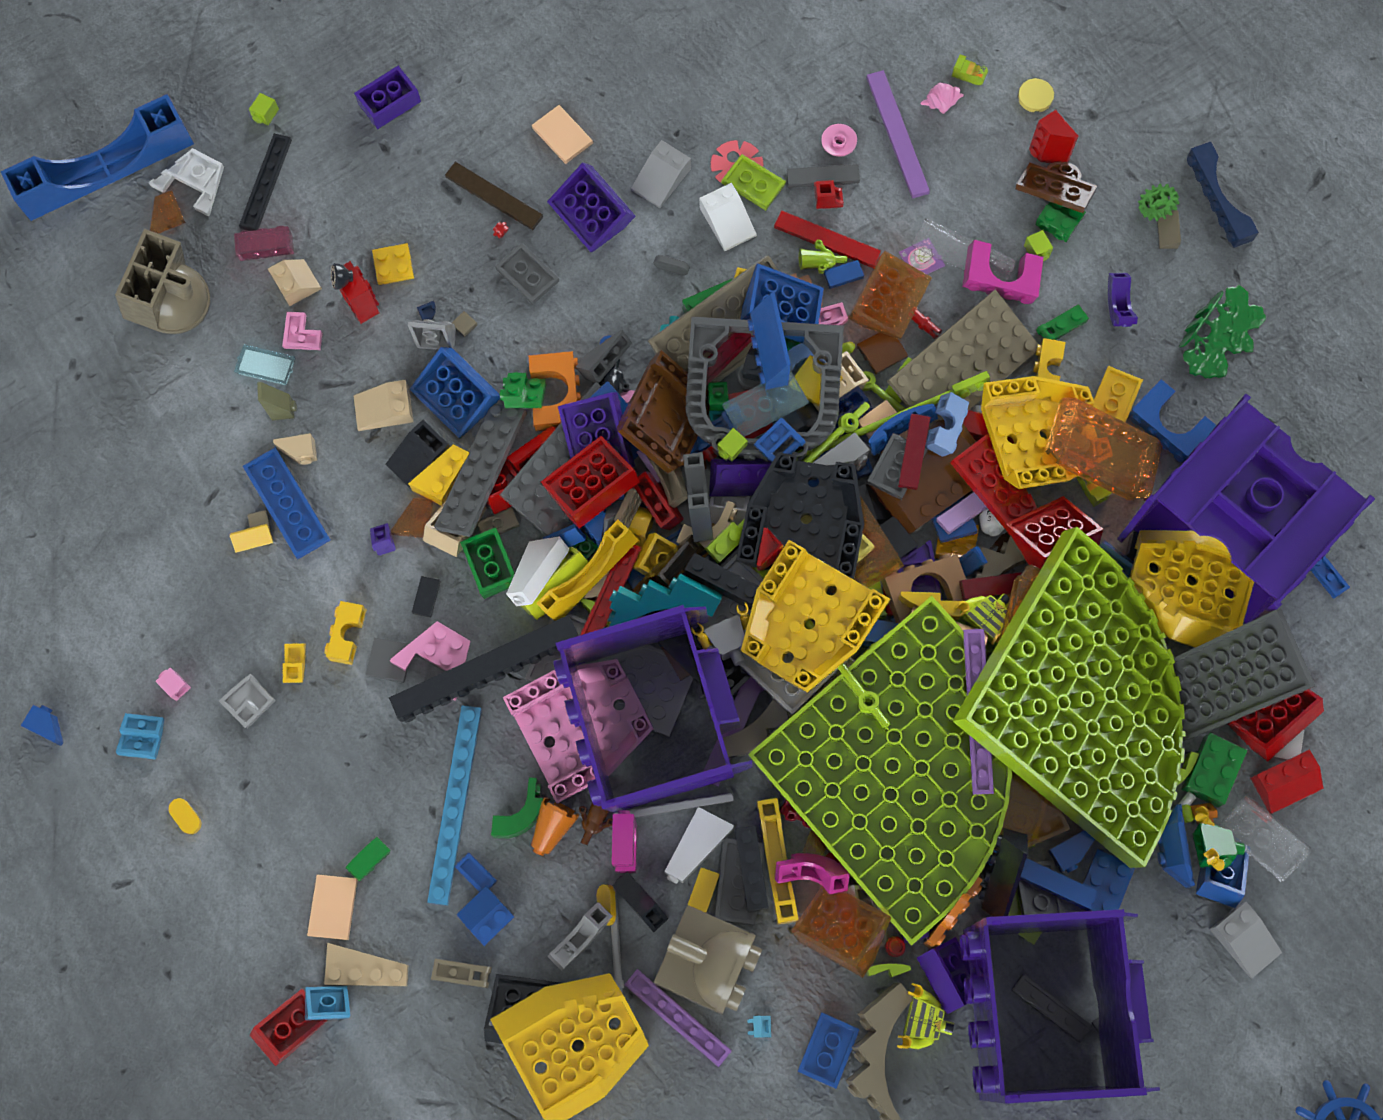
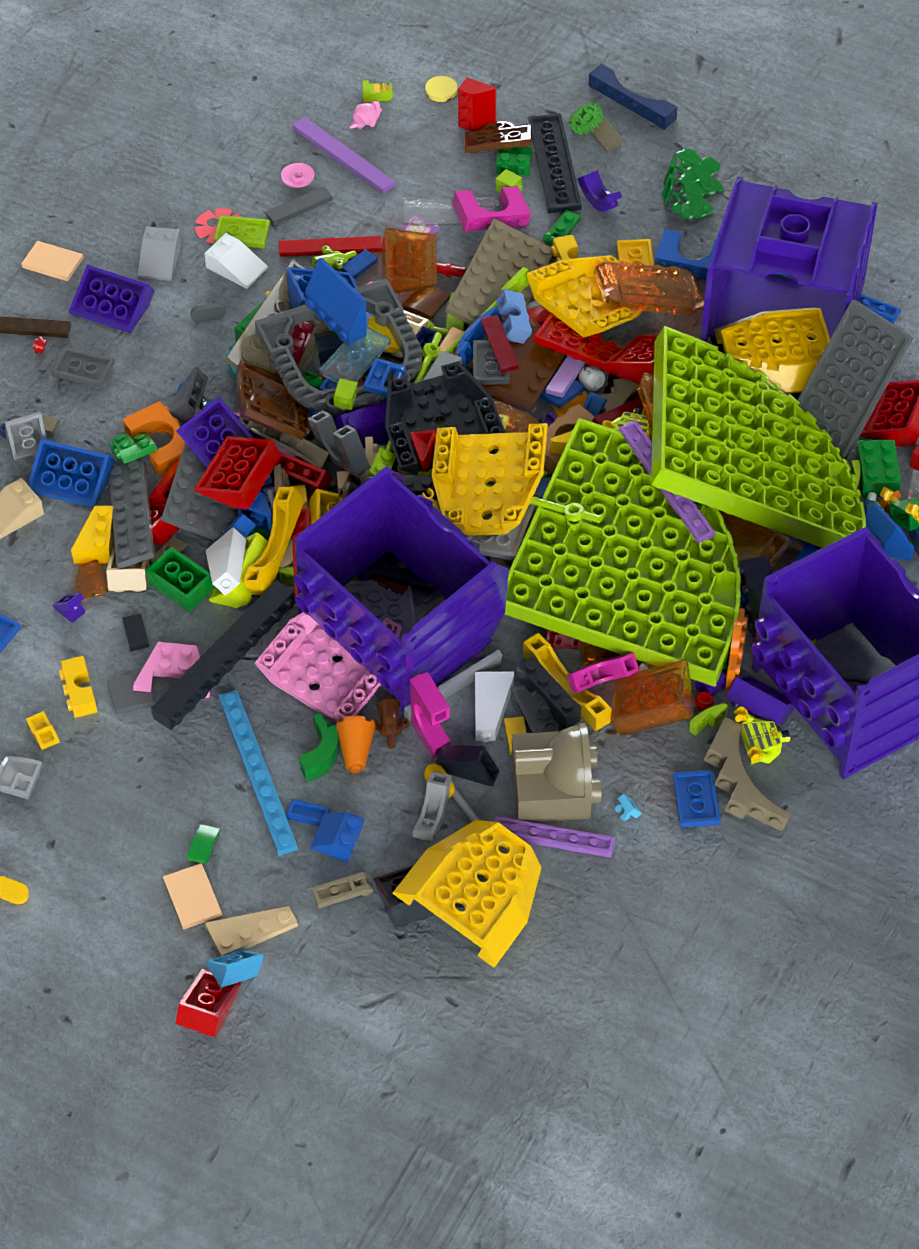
camera: 30 degrees left, 20 degrees down
(416, 452) = (63, 528): black slope -> none
(827, 195) = (311, 214): red brick -> none
(1093, 492) = (655, 322): lime leg -> none
(1098, 241) = (554, 163): none -> black plate

